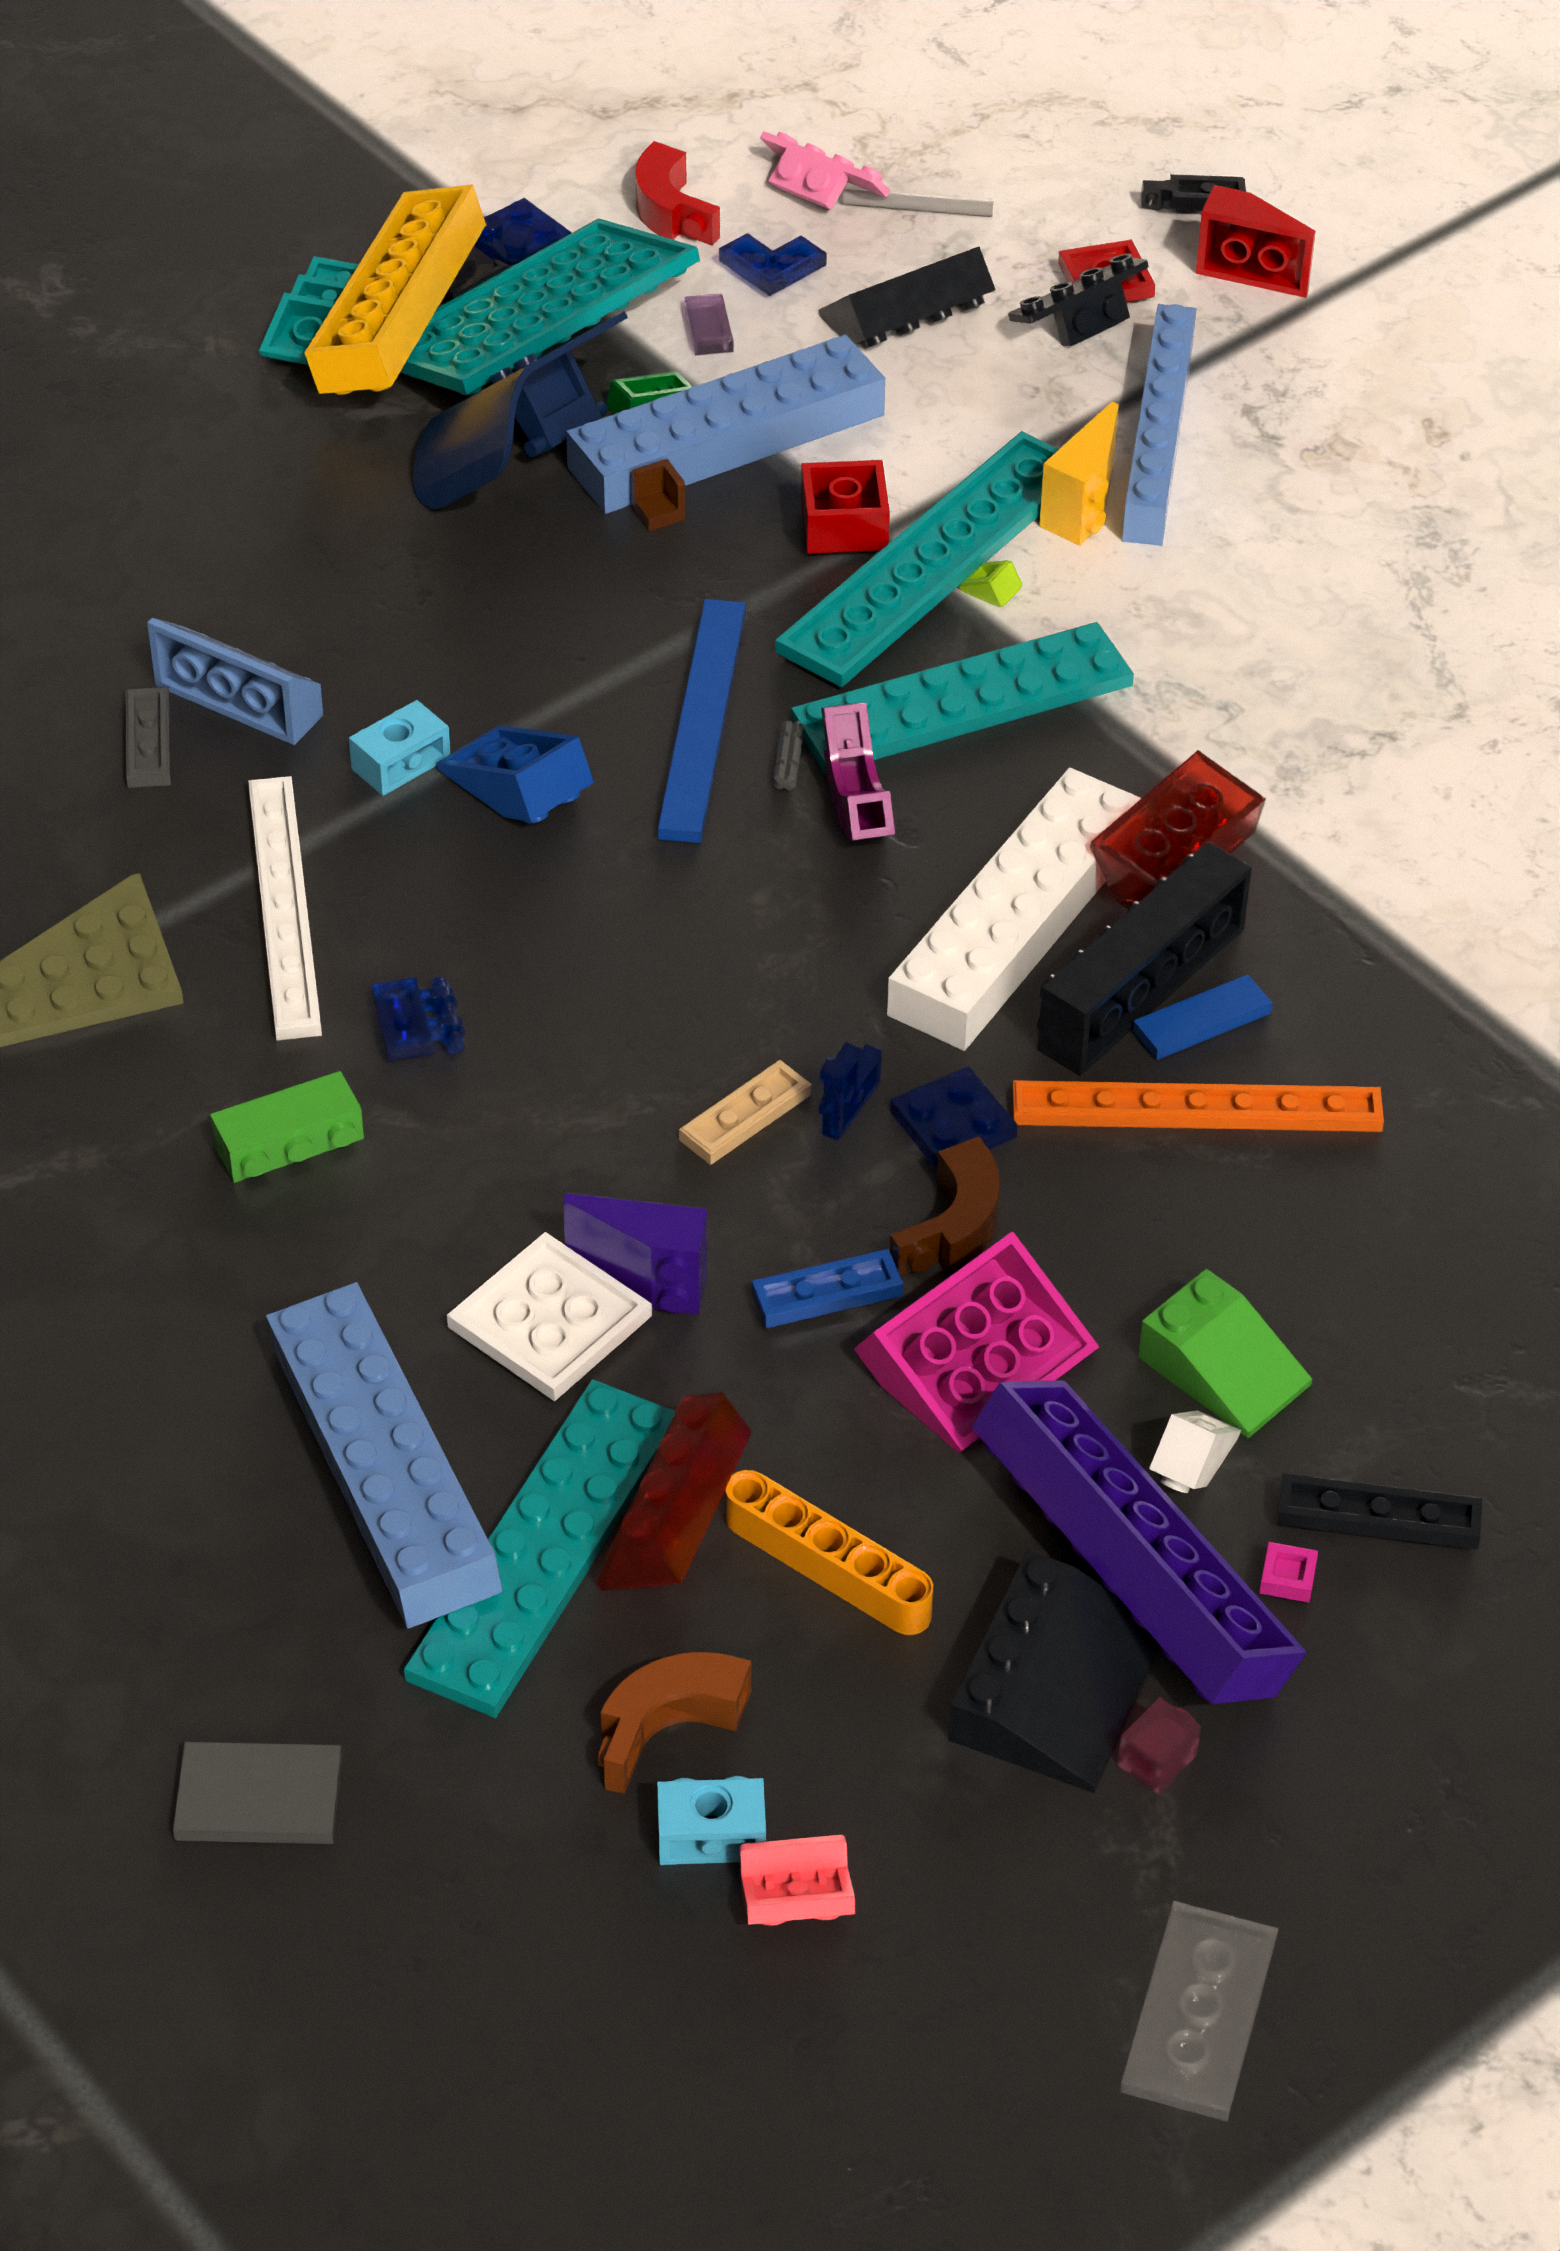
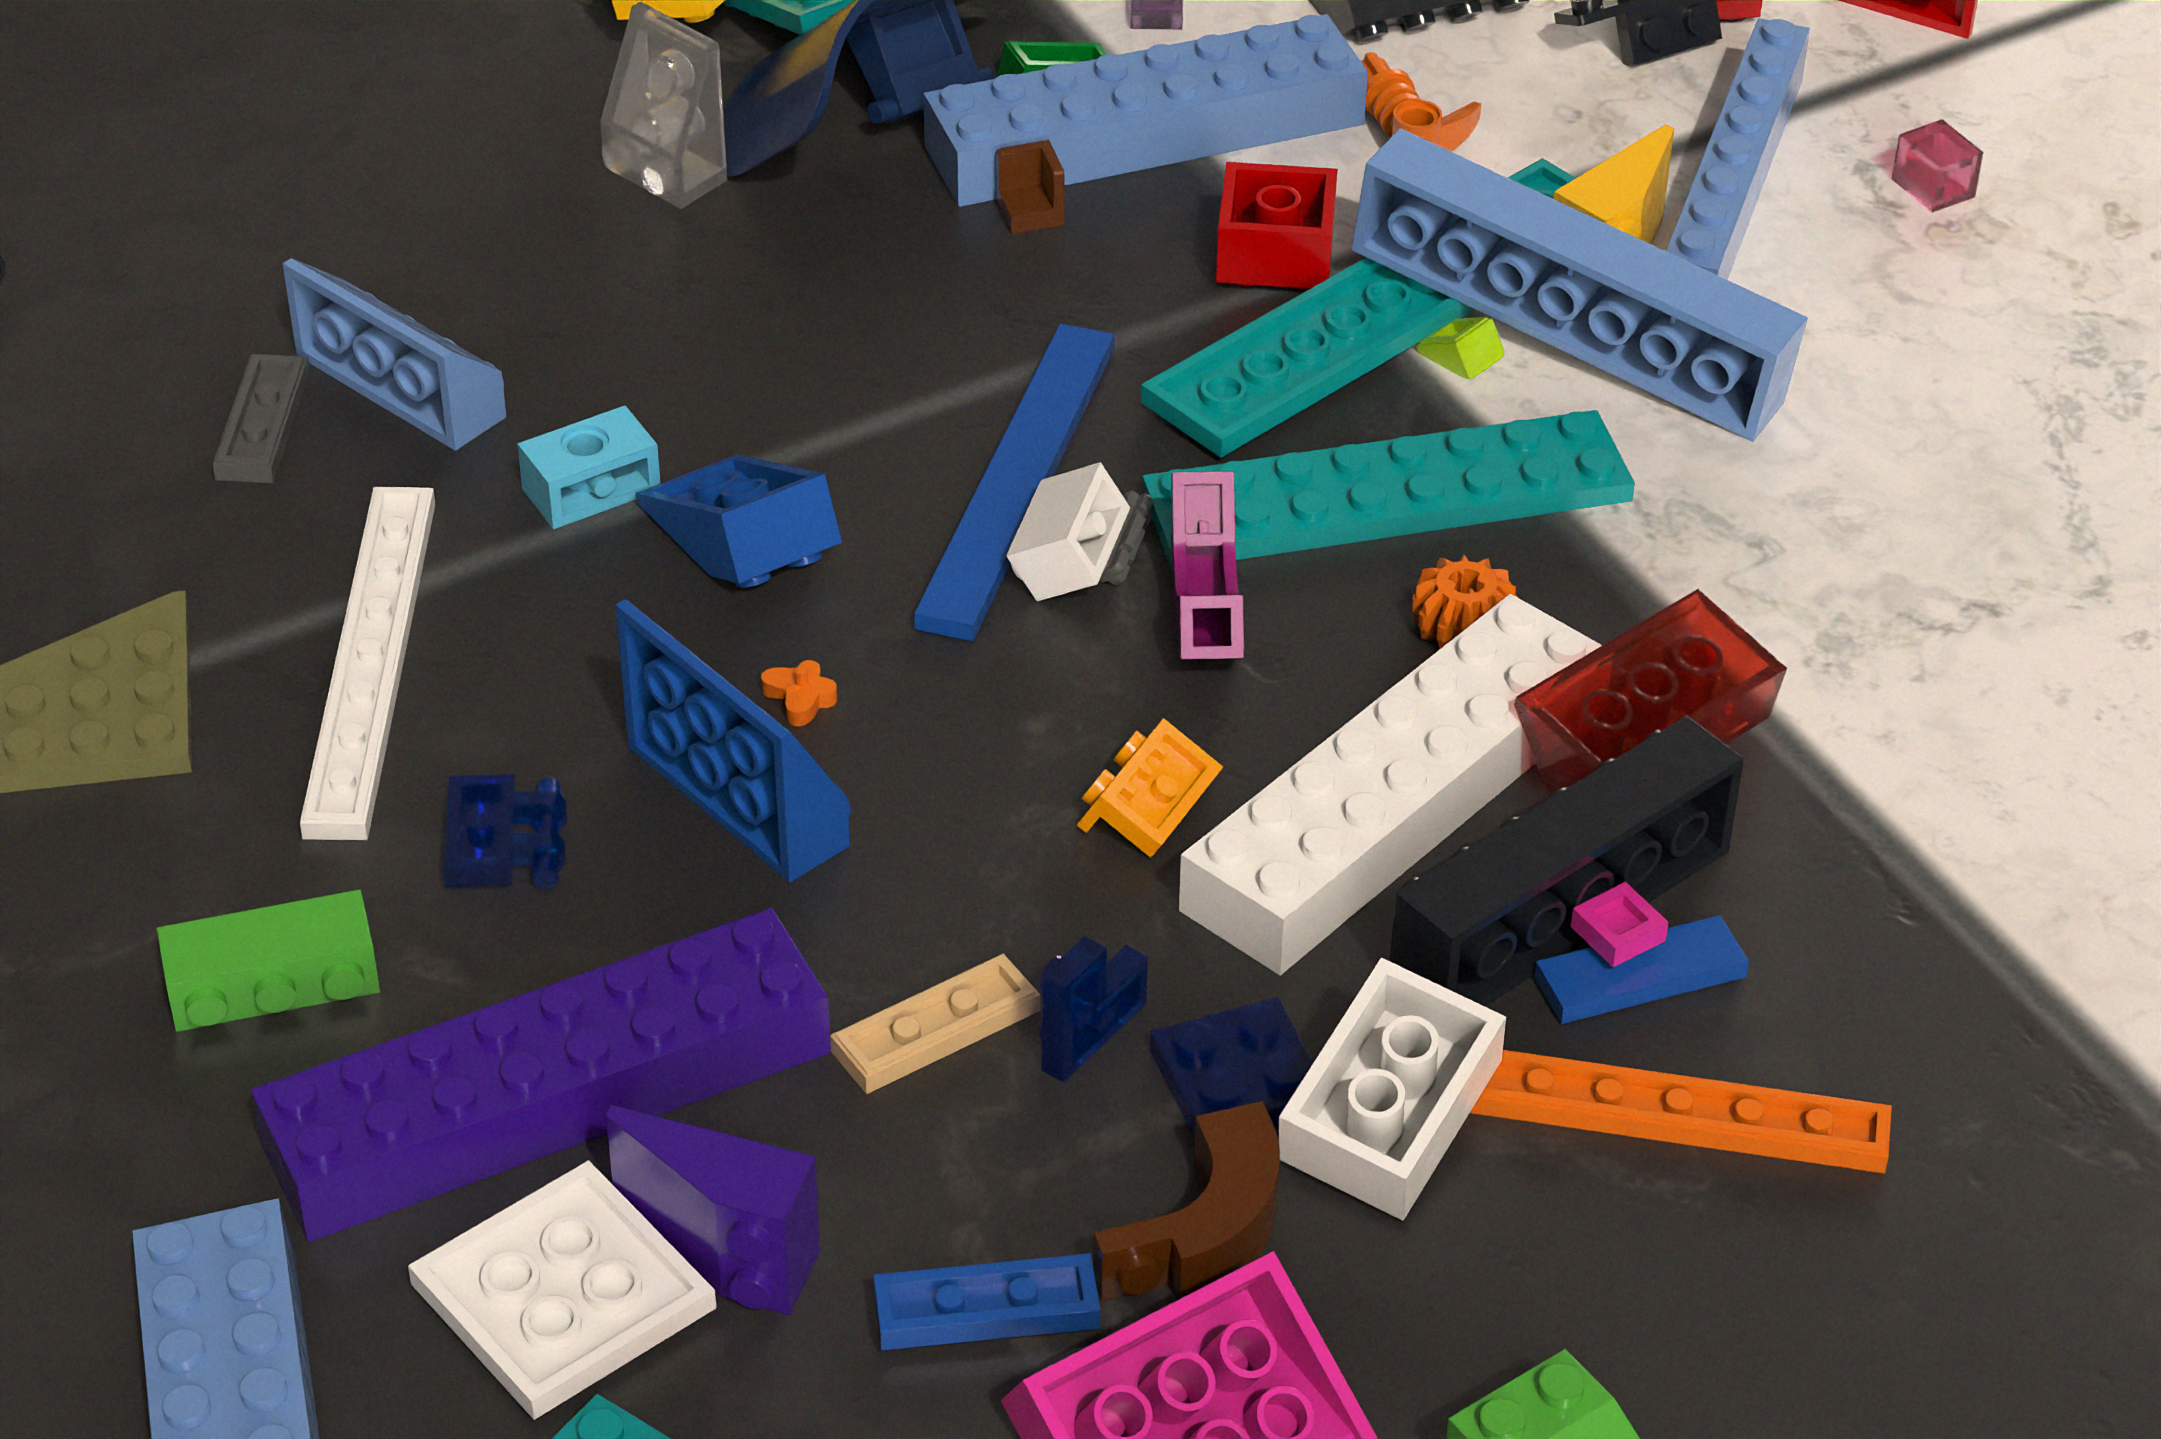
camera: 10 degrees right, 5 degrees down
(382, 466) = (665, 109): none -> clear slope
(496, 1177) = (539, 1072): none -> dark purple brick
(561, 943) = (726, 752): none -> blue slope
(592, 891) = (802, 690): none -> orange piece
(752, 757) = (1068, 532): none -> white brick
(851, 932) = (1153, 790): none -> light orange bracket
(926, 415) = (1397, 105): none -> orange piece
(1031, 773) = (1456, 596): none -> orange gear
(1061, 1116) = (1391, 1088): none -> white brick
(1069, 530) = (1578, 284): none -> medium blue brick
(1185, 989) = (1619, 924): none -> dark pink plate
(1302, 405) = (1937, 165): none -> clear pink brick

